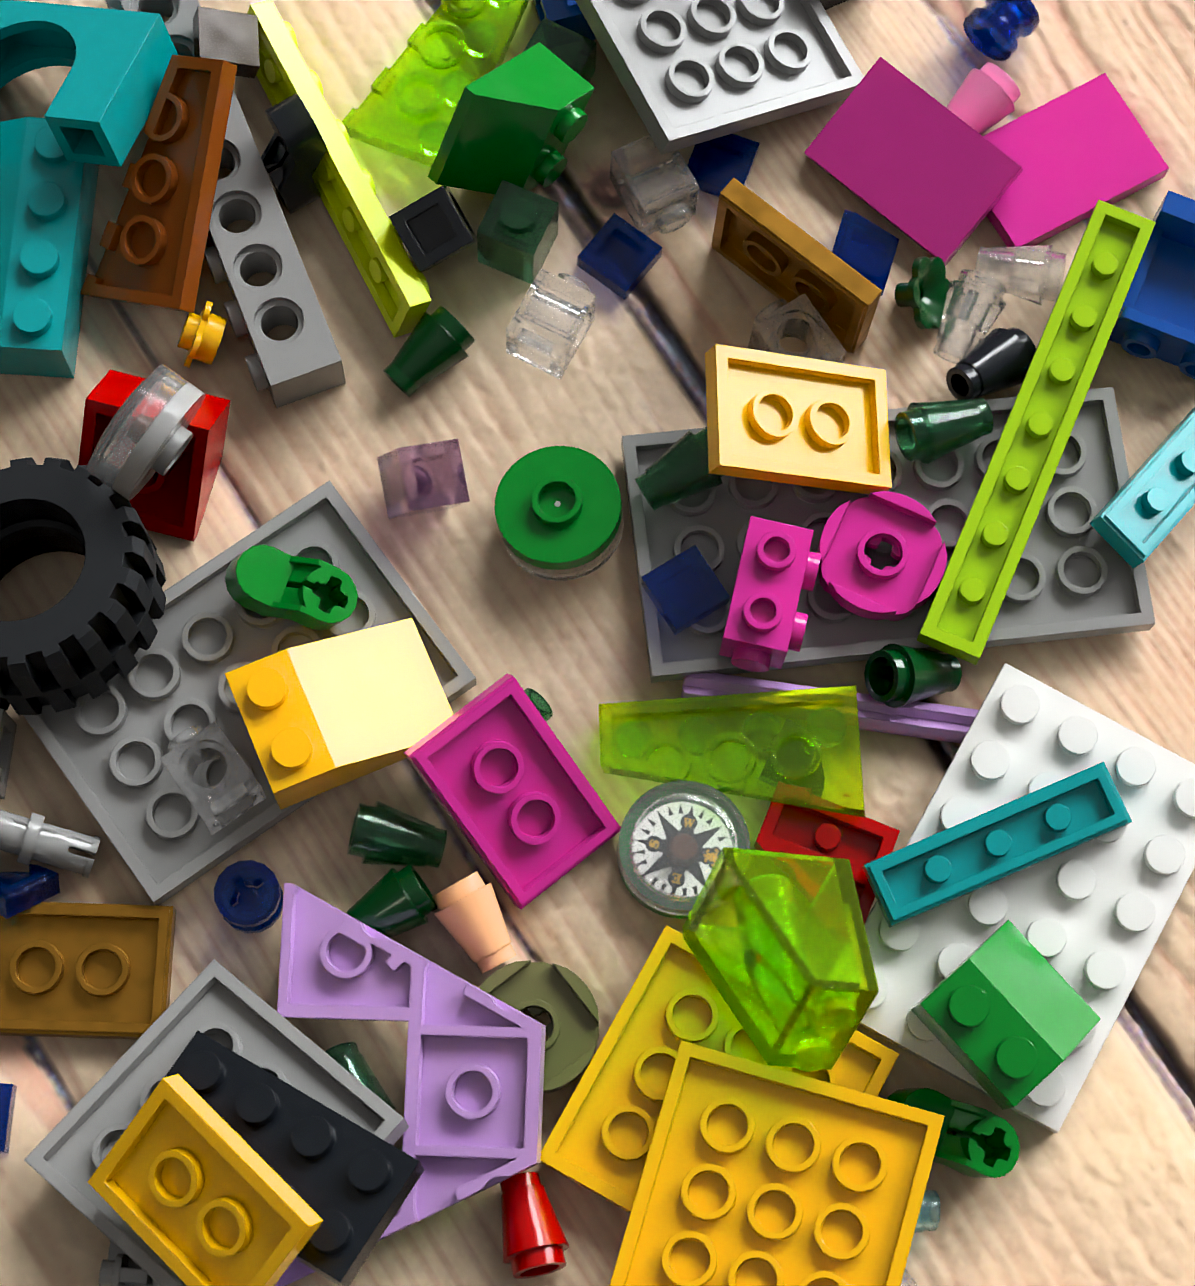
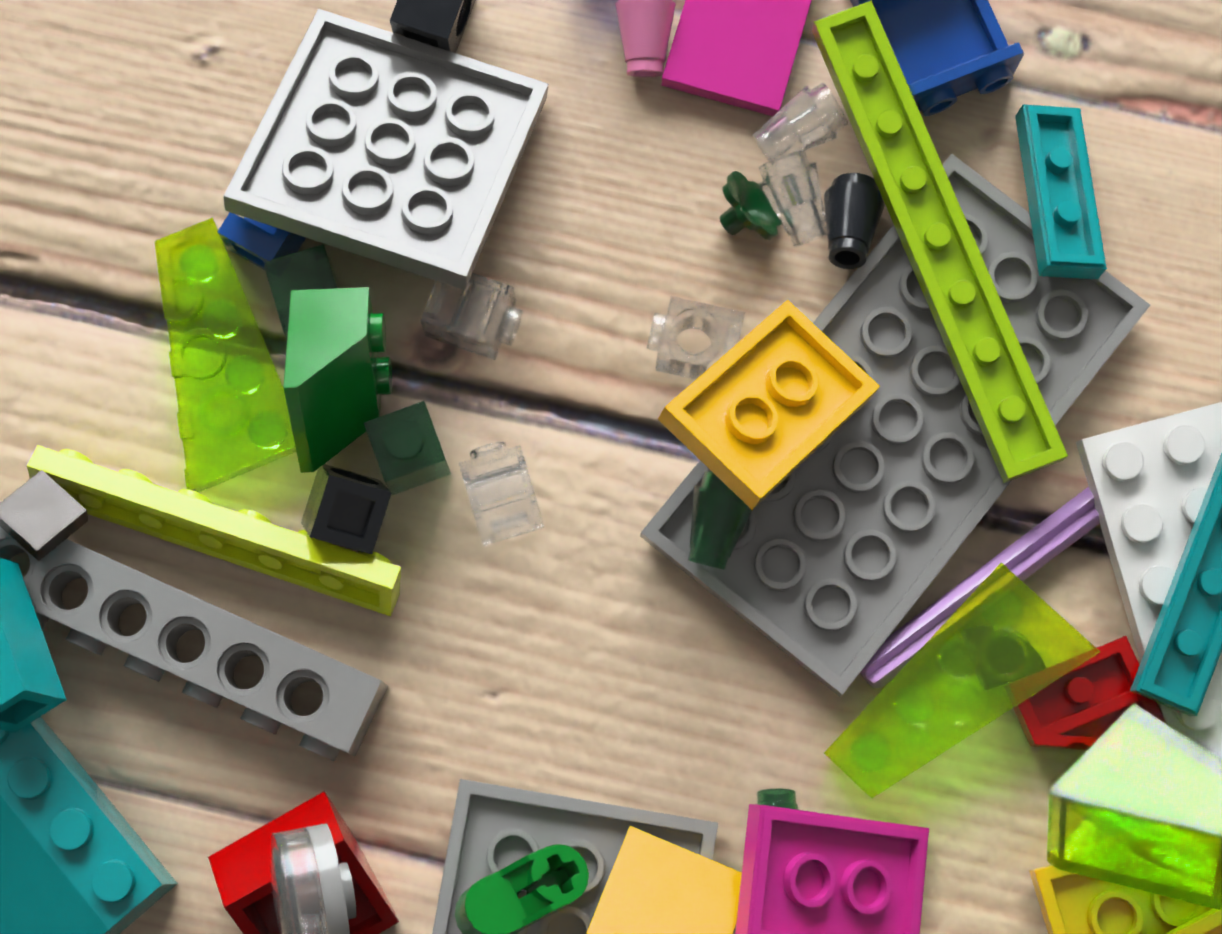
camera: 40 degrees left, 5 degrees up
(164, 222) = (131, 697): dark orange wing -> none
(201, 335) = (248, 759): yellow plate -> none
(293, 153) = (179, 552): black piece -> none
(423, 478) = (532, 711): brick -> none
(430, 350) = (431, 604): dark green cone -> none
(559, 513) = (652, 635): green piece -> none
(619, 256) = (495, 391): clear blue tile -> none
(674, 842) = (989, 802): clear piece -> none
(685, 589) = (805, 607): clear blue tile -> none
(721, 160) = (507, 249): clear blue tile -> none
(766, 595) = (876, 557): dark pink brick -> none
(793, 263) = (643, 281): pearl gold tile -> none
(865, 248) = (671, 221): clear blue slope -> none
(893, 590) = (936, 411): dark pink plate -> none
(910, 674) = (1021, 514): dark green cone -> none
(913, 161) = (642, 114): dark pink tile -> none
(941, 427) = (869, 305): clear green cone -> none

